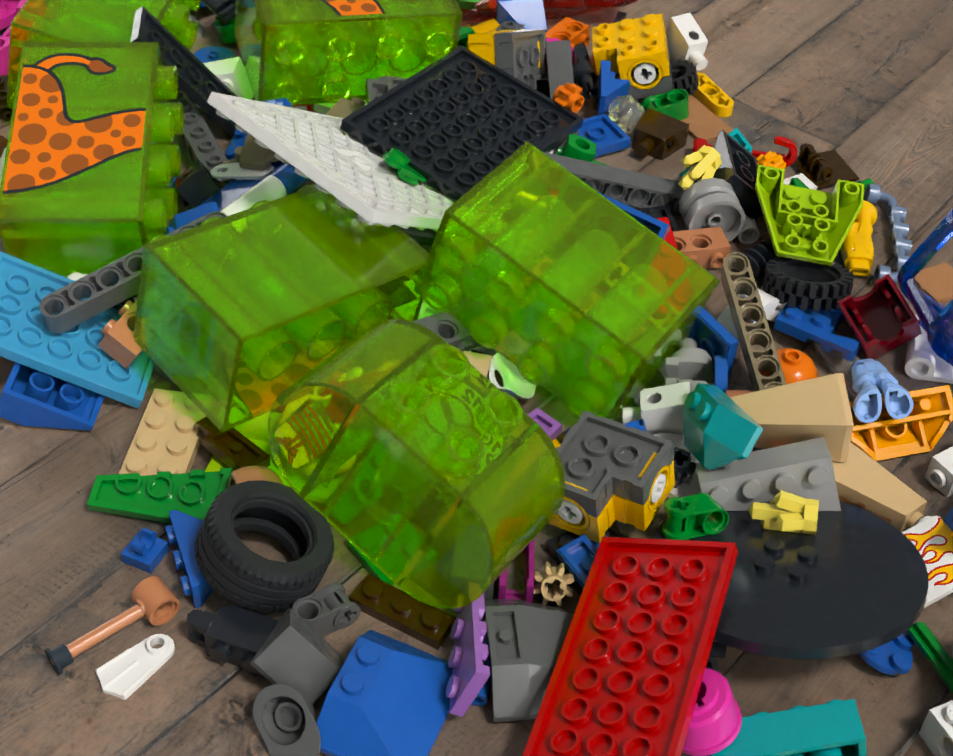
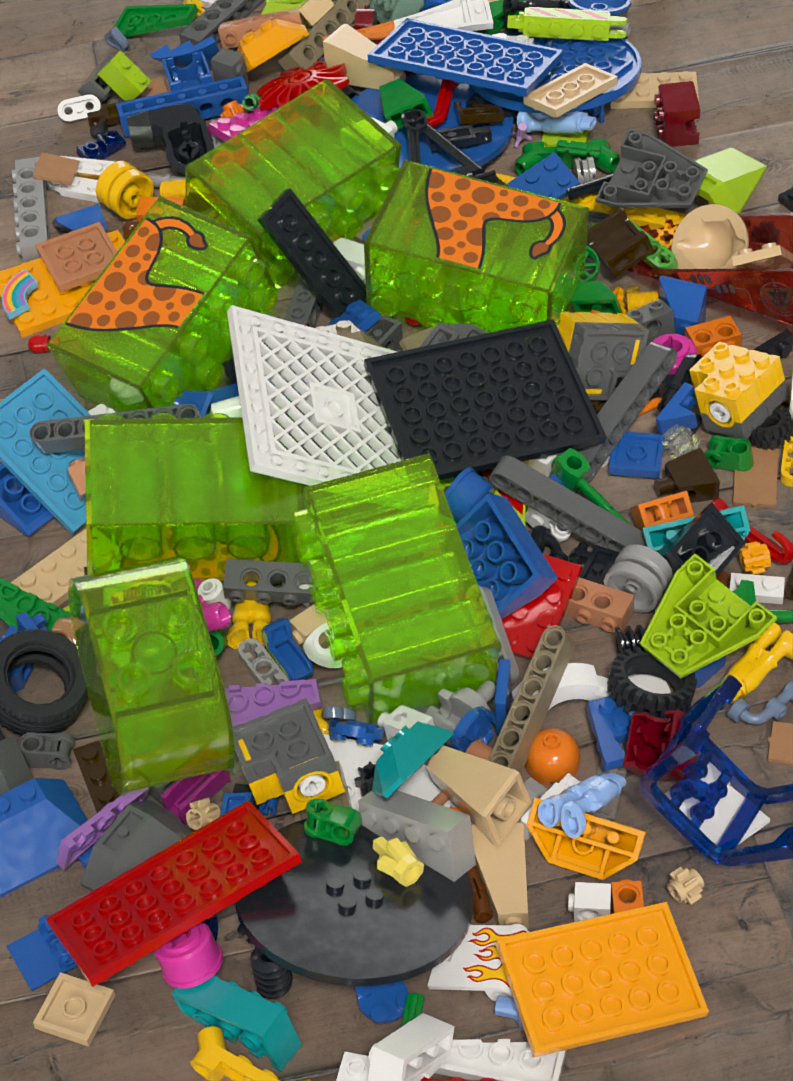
camera: 45 degrees right, 5 degrees up
(196, 500) = (24, 622): none -> blue tile
(399, 162) = (372, 424): green plate -> none
(569, 97) = (608, 411): orange gear -> none
(668, 161) = (662, 510): none -> orange brick
(704, 165) = (657, 531): light yellow rock -> none
(777, 683) = (270, 978): none -> black piece

